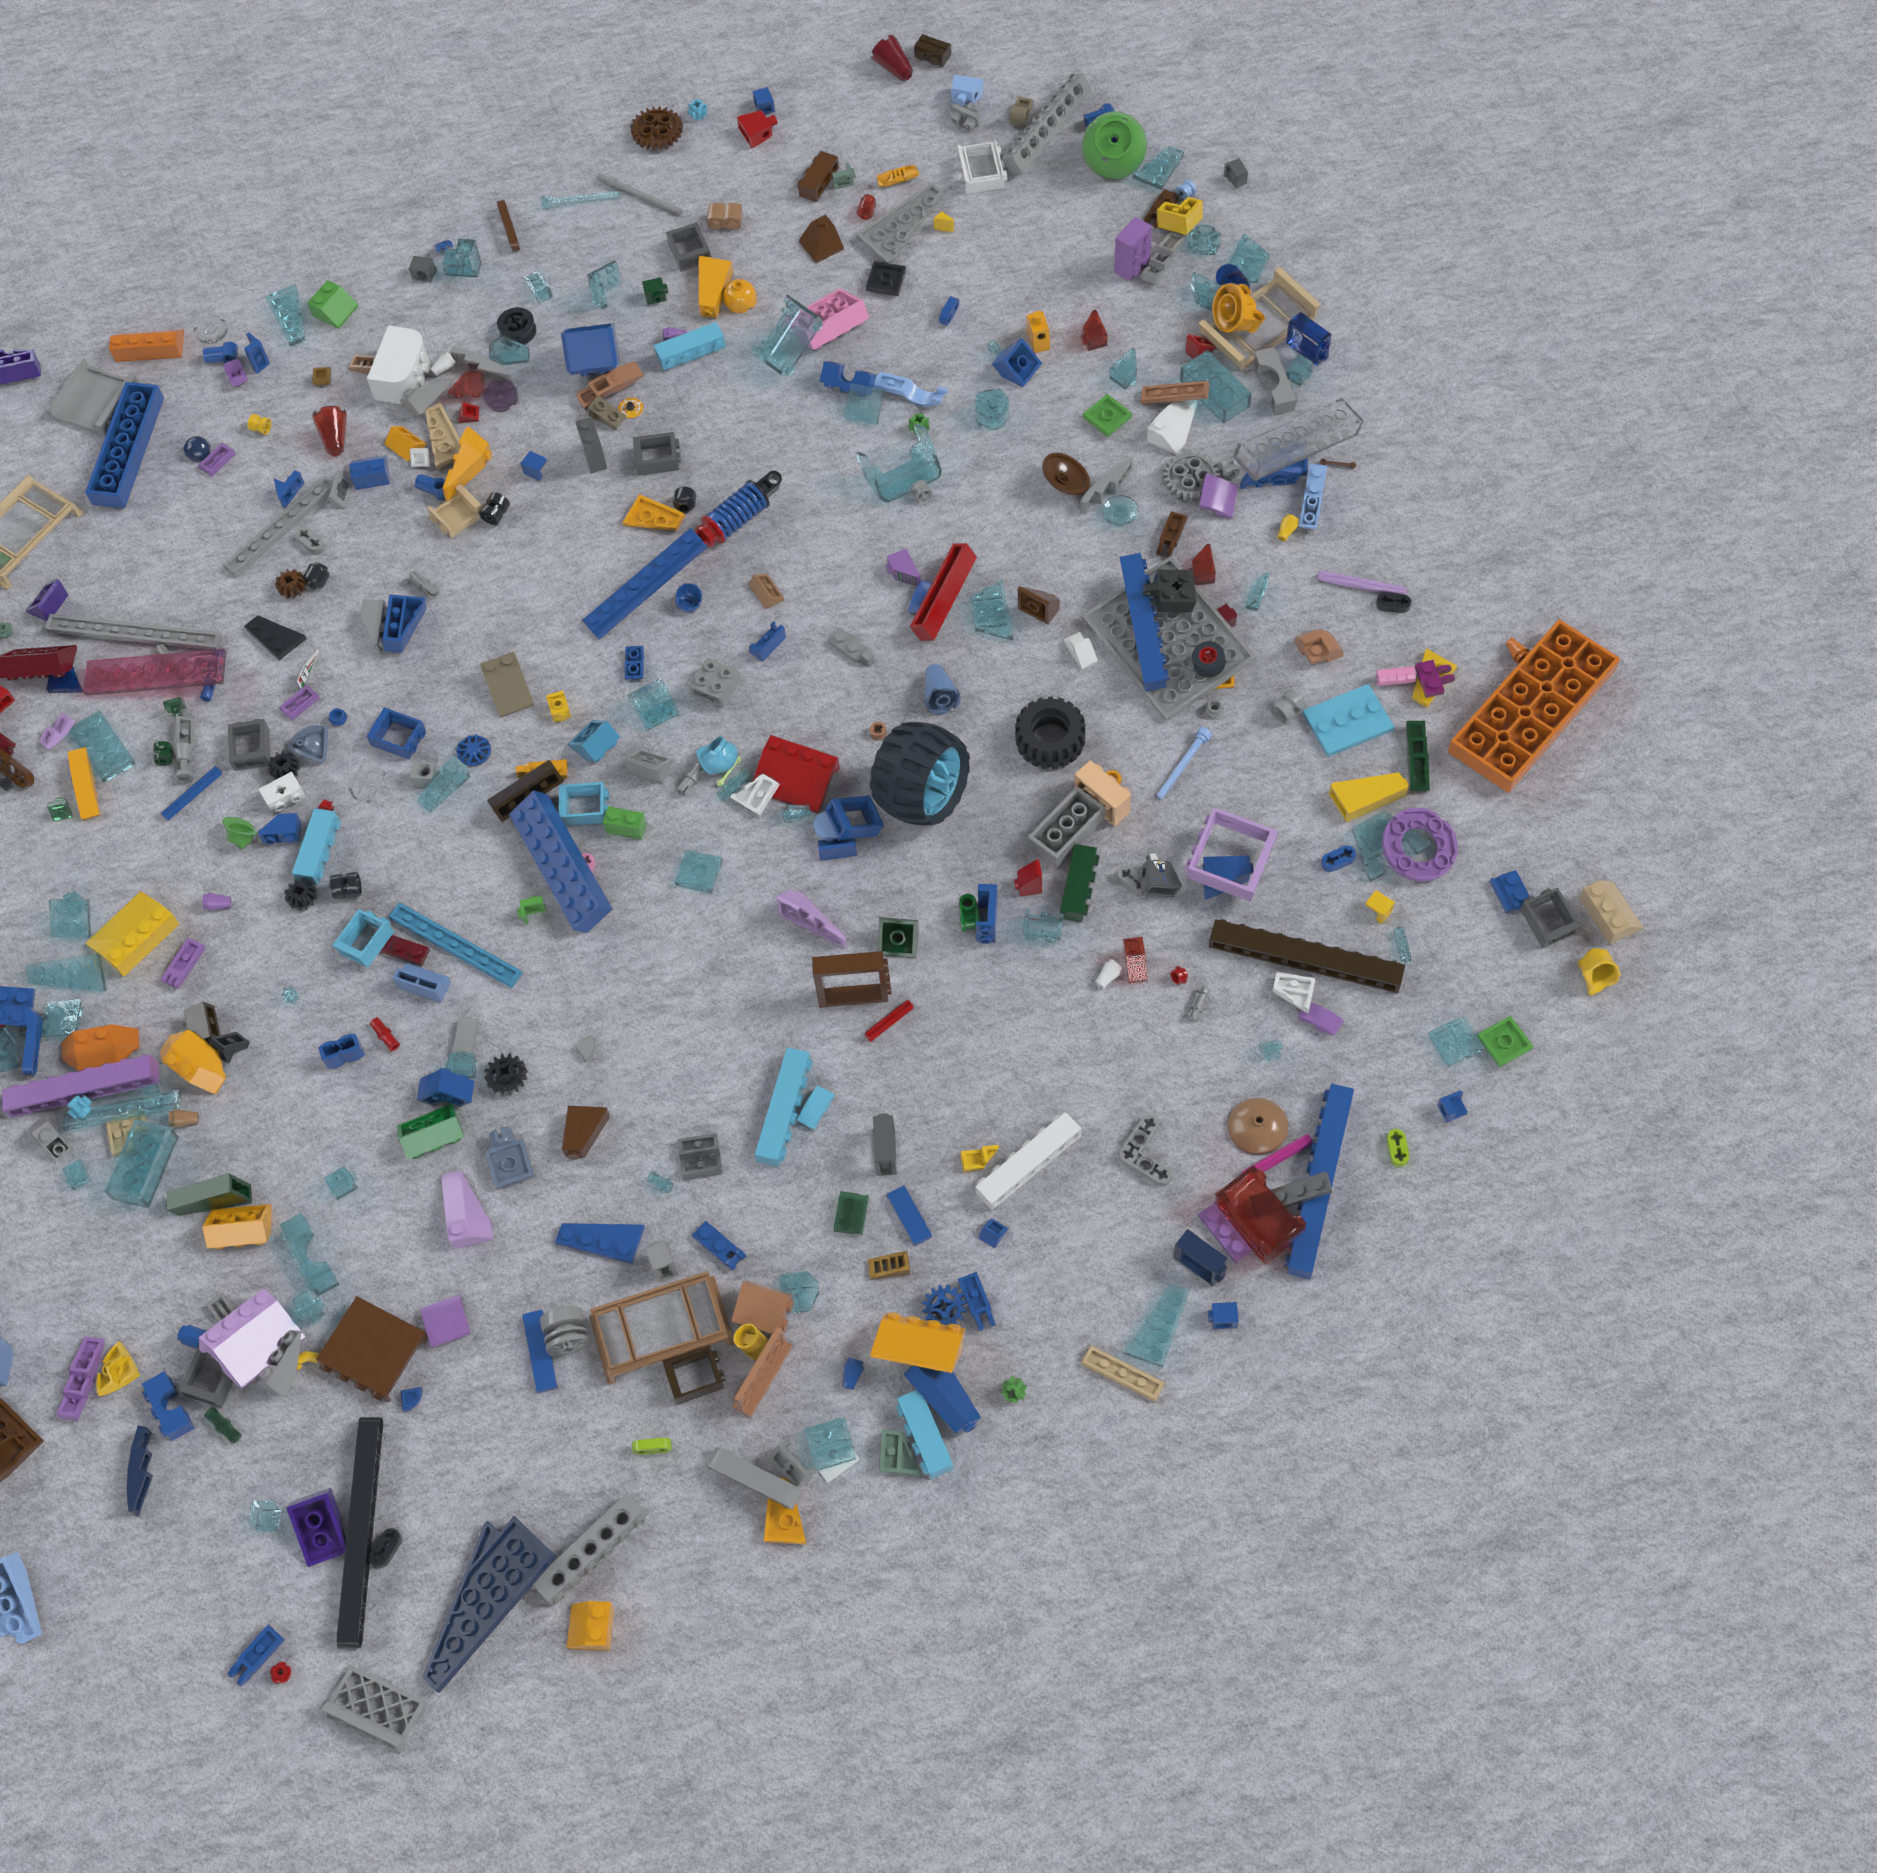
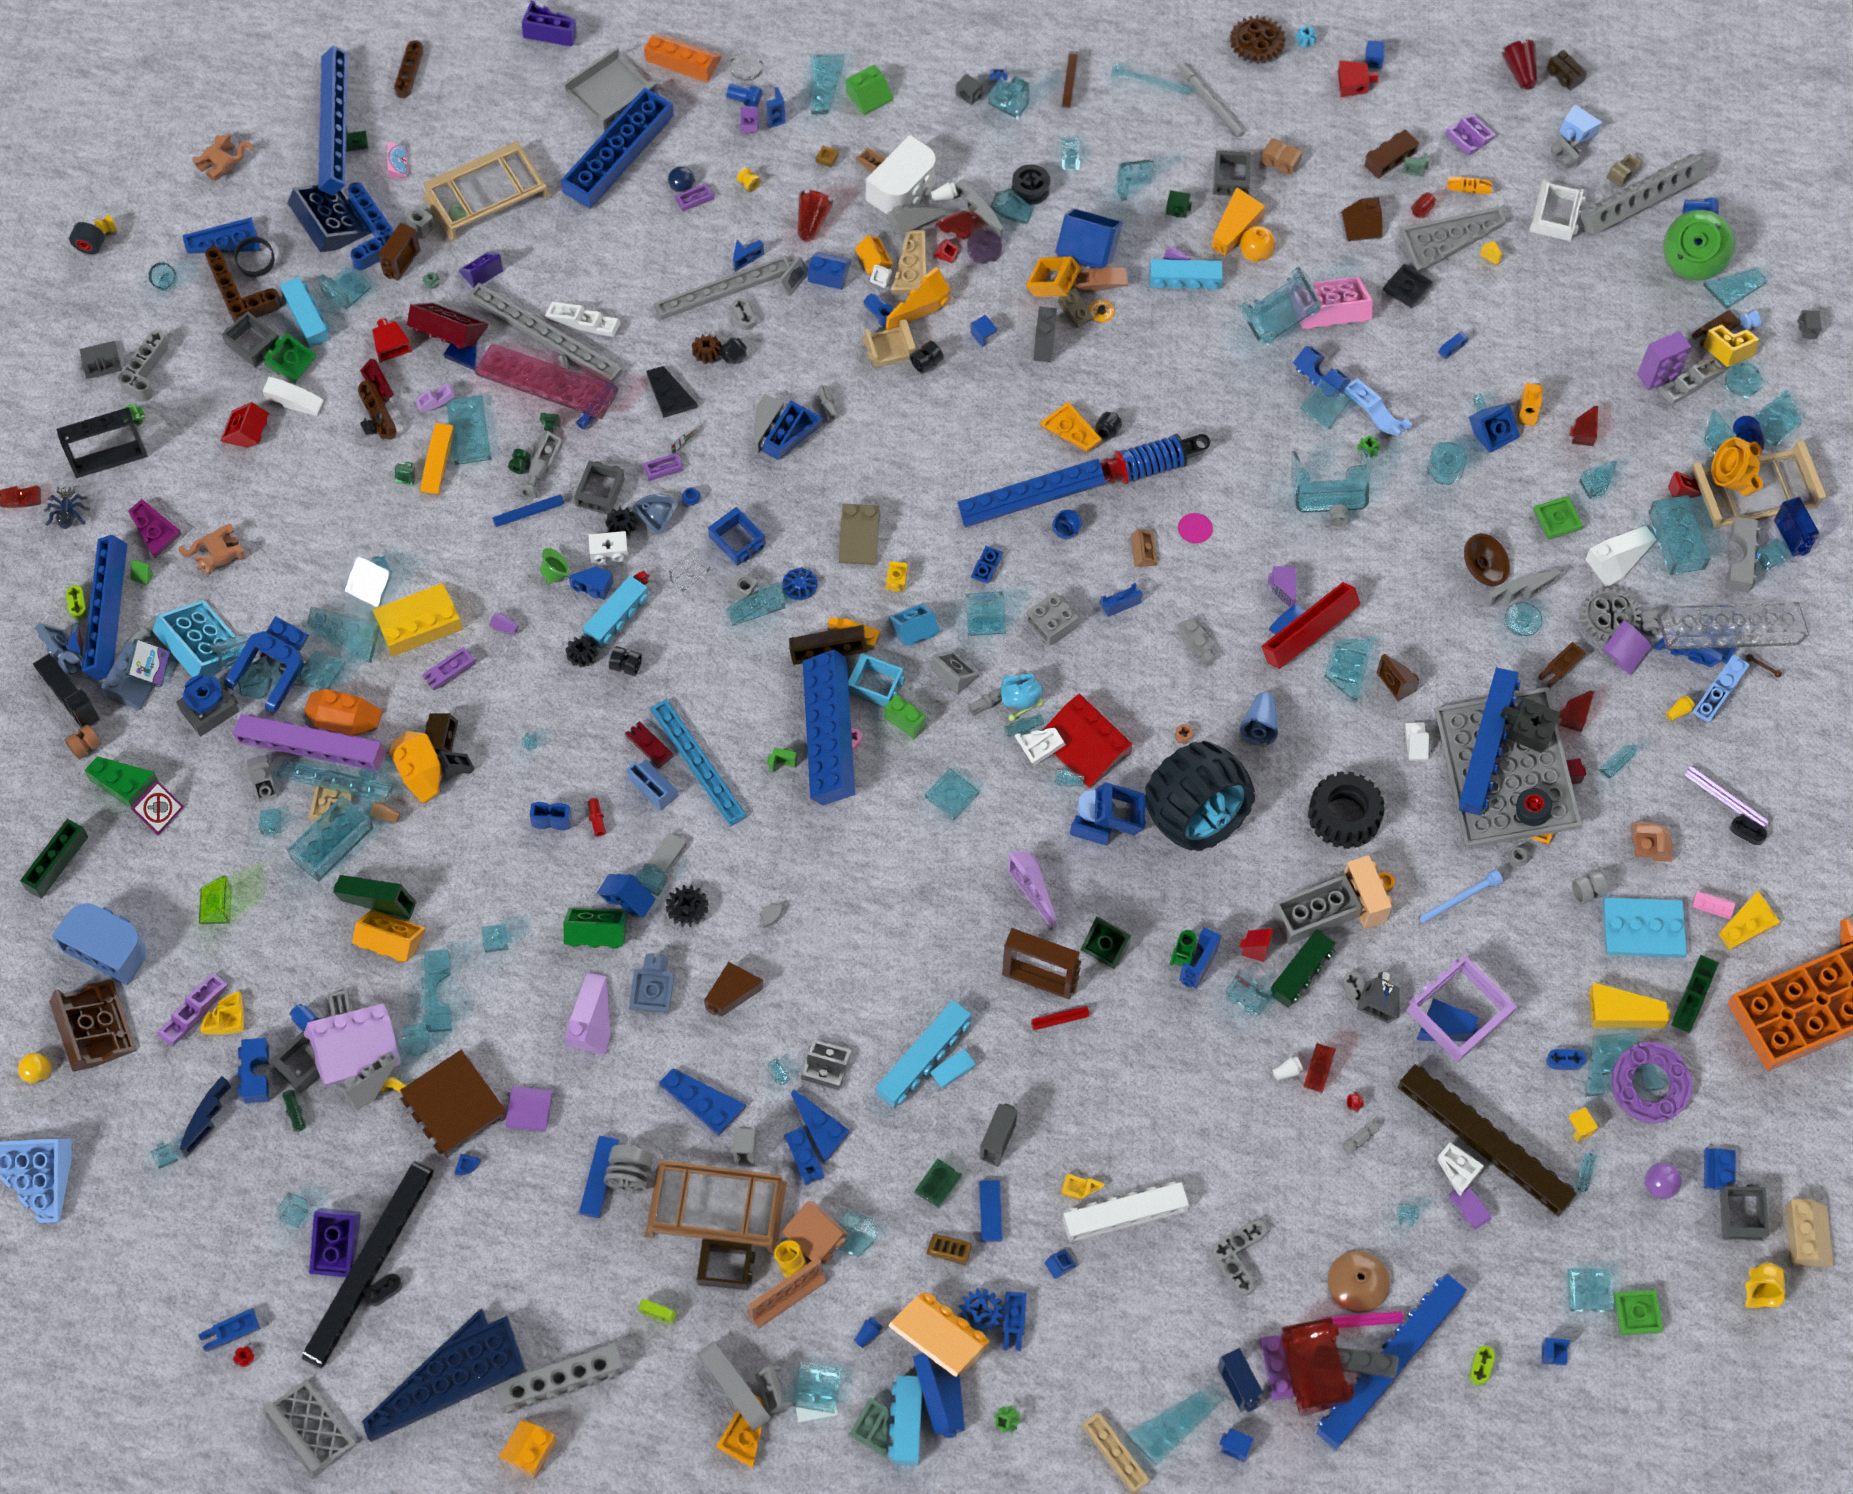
camera: 20 degrees right, 0 degrees up
(57, 1270) = (215, 902): none -> clear neon green slope
(79, 1107) = (299, 761): medium azure gear -> none
(116, 1524) = (164, 1154): none -> clear light blue tile
(157, 606) = (579, 318): none -> white slope
(354, 928) = (612, 707): medium azure window -> none
(583, 381) = (1061, 286): none -> light orange window
(656, 465) = (1099, 380): dark grey window -> none
(727, 1214) = (824, 1129): none -> blue wing
(802, 554) = (1195, 528): none -> dark pink sticker
(877, 134) = (1470, 134): none -> medium lavender slope
(1175, 392) = (1635, 524): nougat tile -> none
(1430, 679) = (1745, 922): magenta hinge -> none
(1470, 921) = (1663, 1180): none -> medium lavender piece

